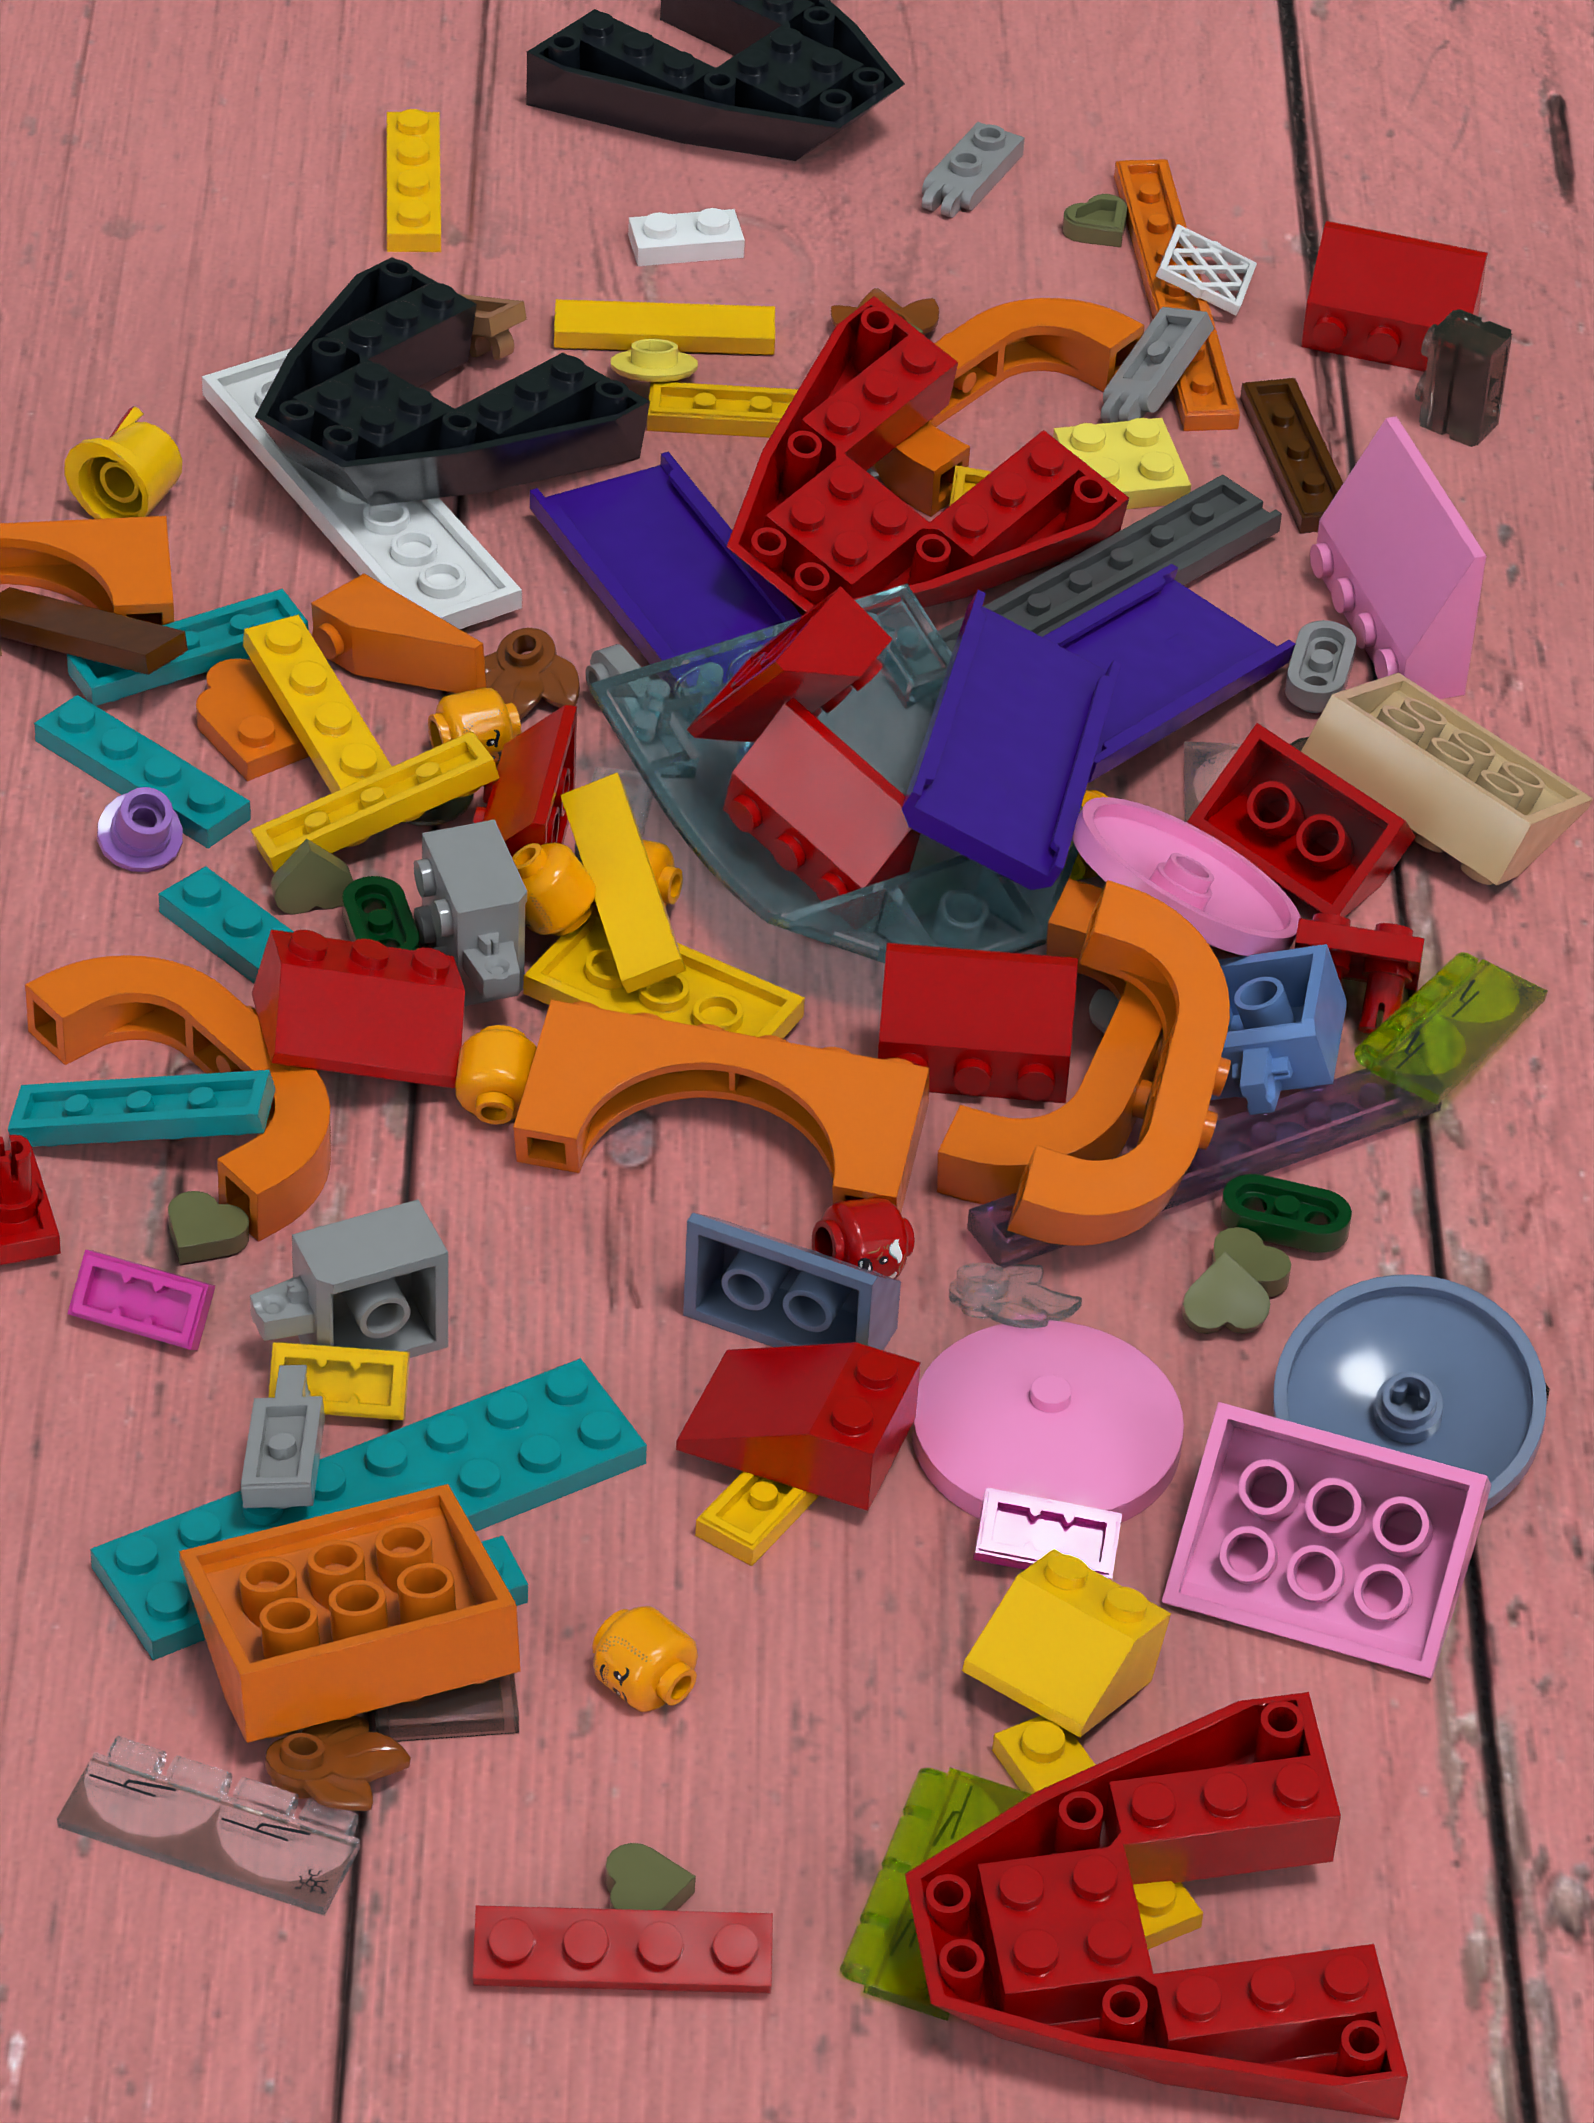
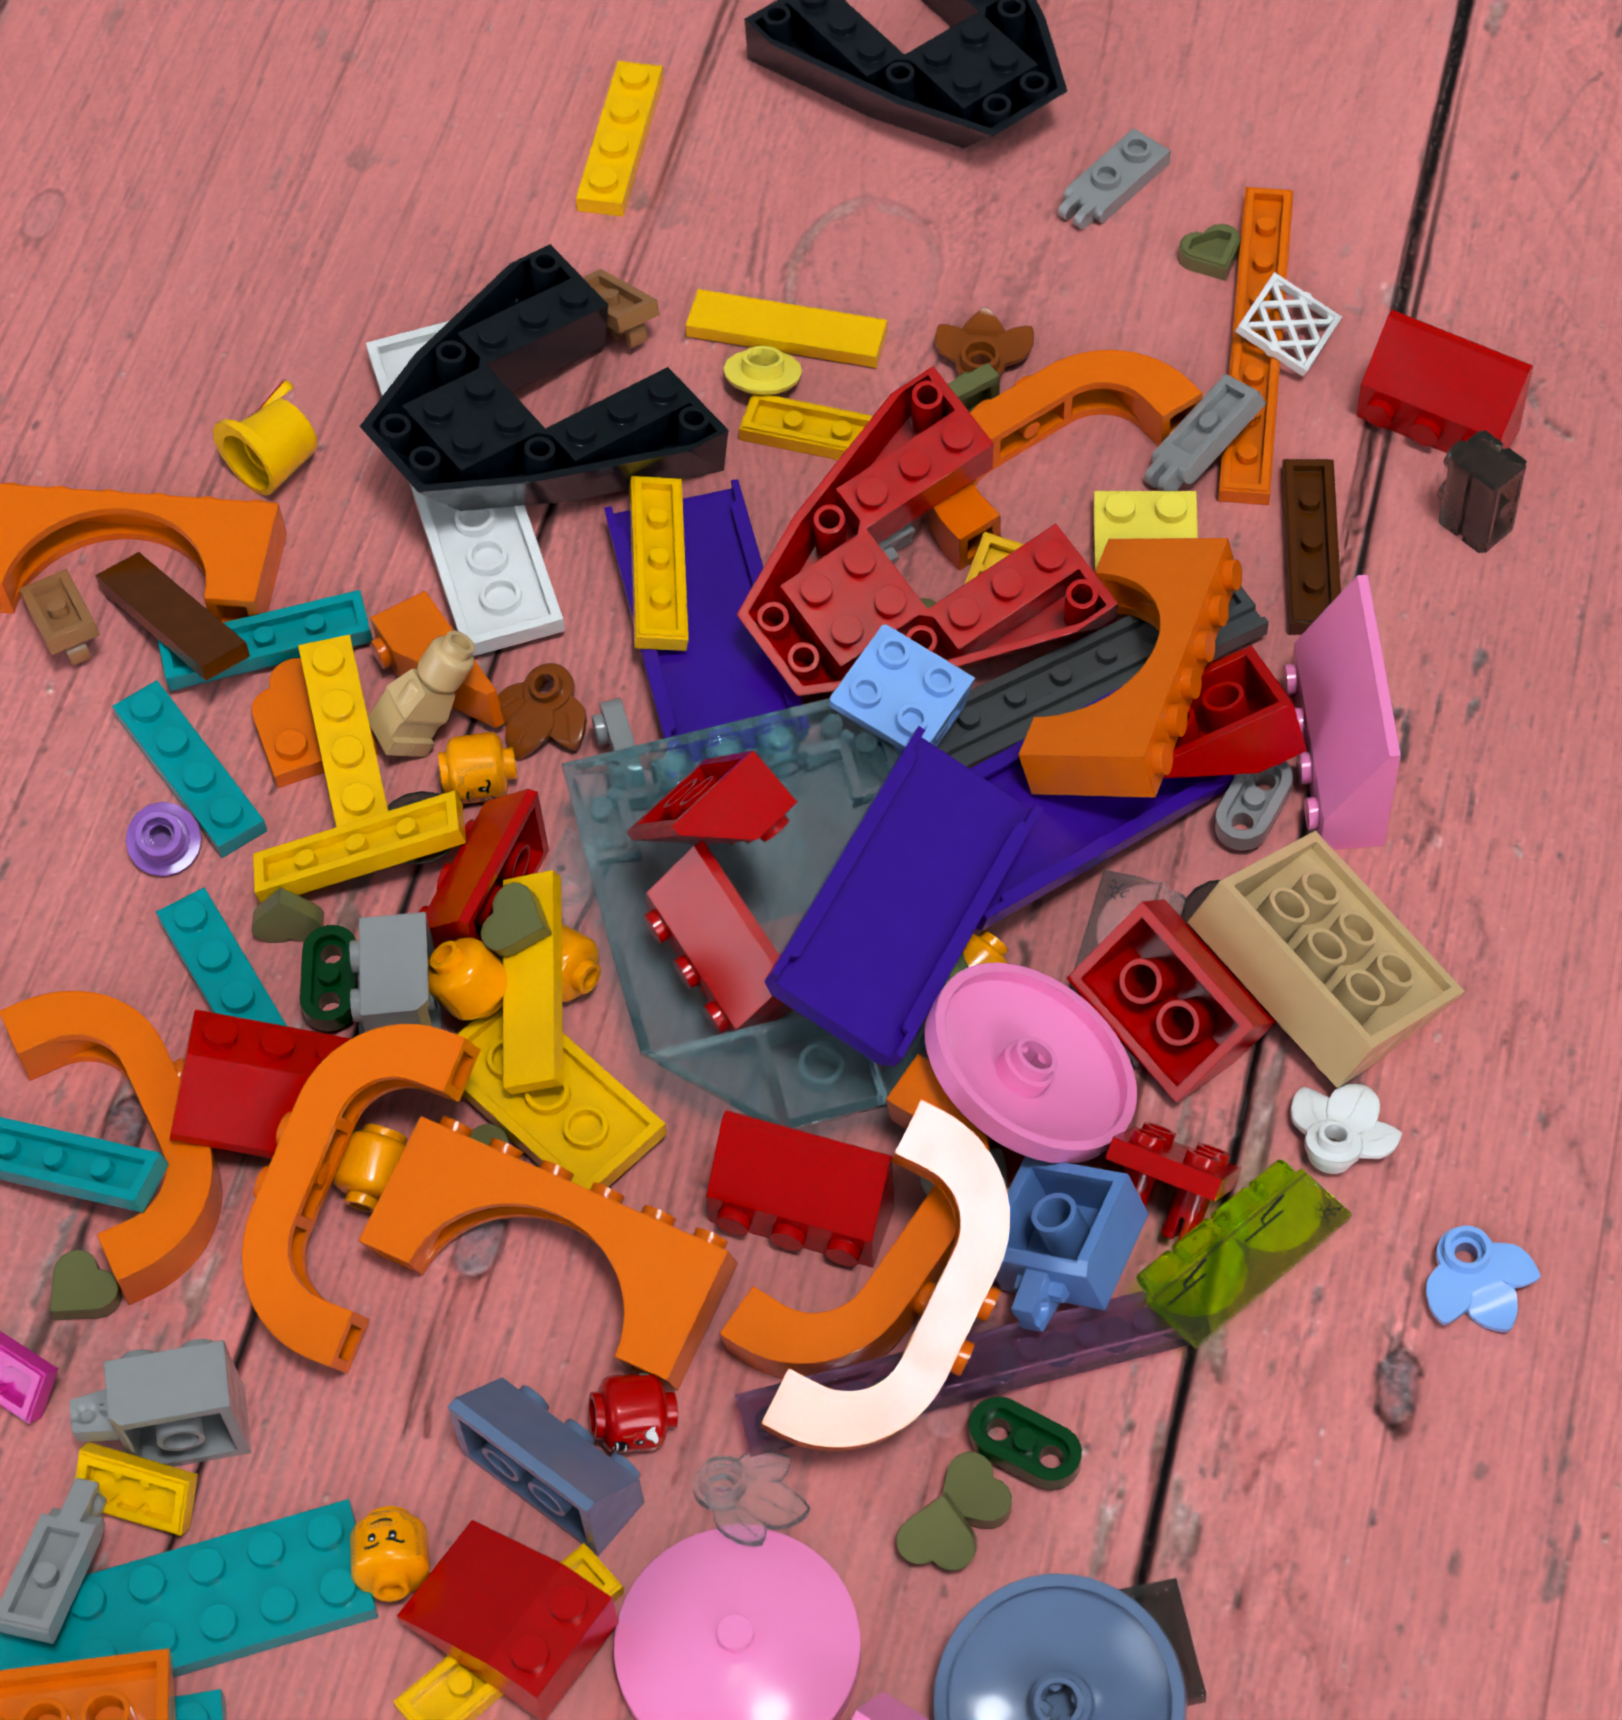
camera: 20 degrees right, 15 degrees up
(401, 661) = (422, 697): none -> tan piece
(495, 947) = (305, 1163): none -> orange arch
(592, 821) = (516, 921): none -> olive tile
(610, 529) = (658, 564): none -> yellow tile
(647, 1387) = (389, 1553): none -> light orange head
(686, 237) = (836, 228): white plate -> none
(931, 582) = (900, 688): none -> light blue bracket
(1196, 585) = (1130, 736): none -> orange arch
(1269, 582) = (1238, 721): none -> red slope
(1511, 921) = (1342, 1127): none -> white plate

